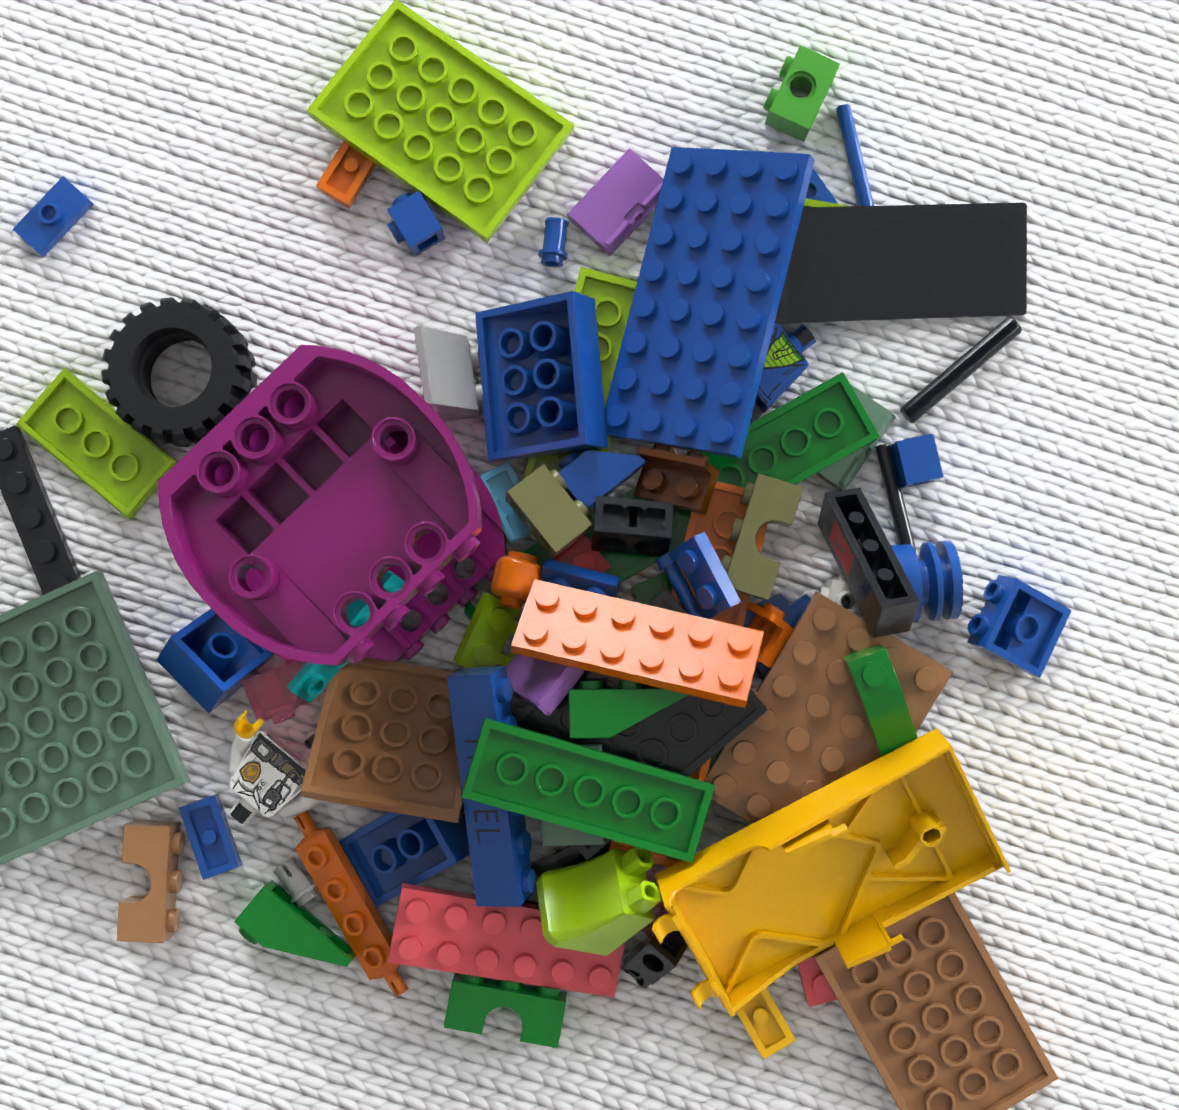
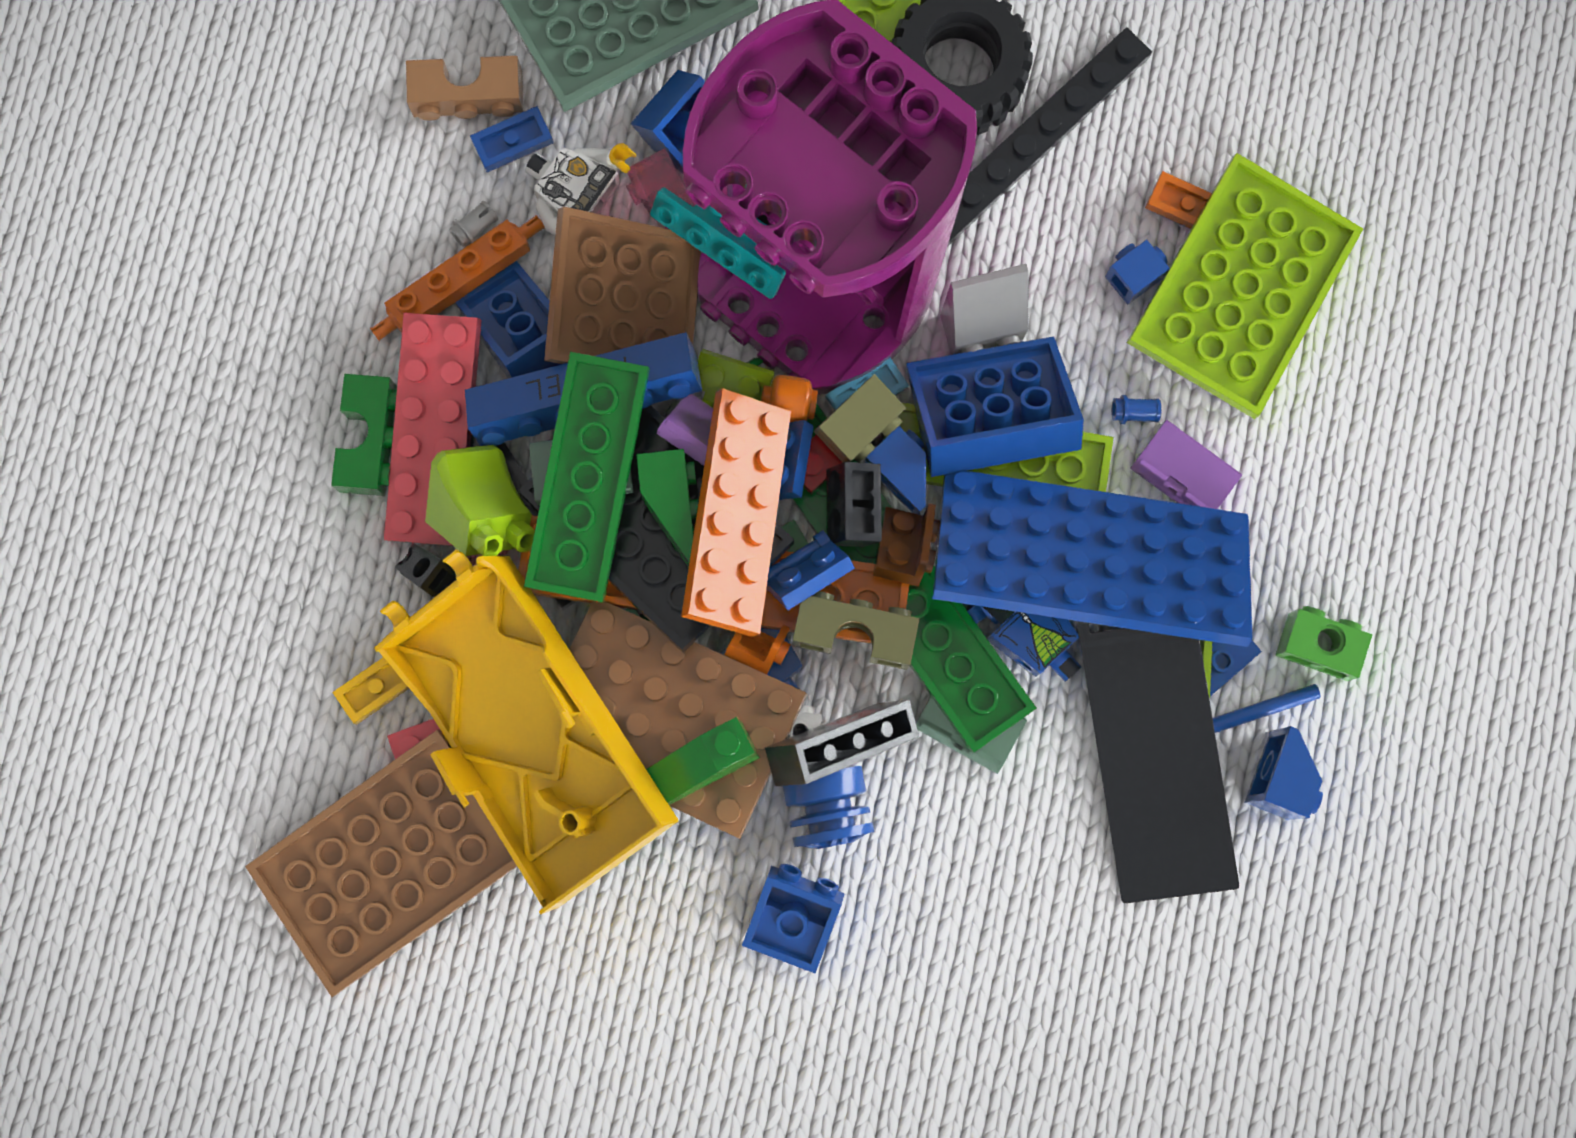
camera: 80 degrees right, 5 degrees down
(236, 270) = (1049, 126): none -> black plate
(290, 929) = (430, 215): green slope -> none
(894, 494) = (913, 781): black bar -> none
(917, 460) = (953, 796): blue panel -> none
(929, 145) = (1286, 777): none -> blue slope
(961, 369) = (1055, 838): black axle -> none

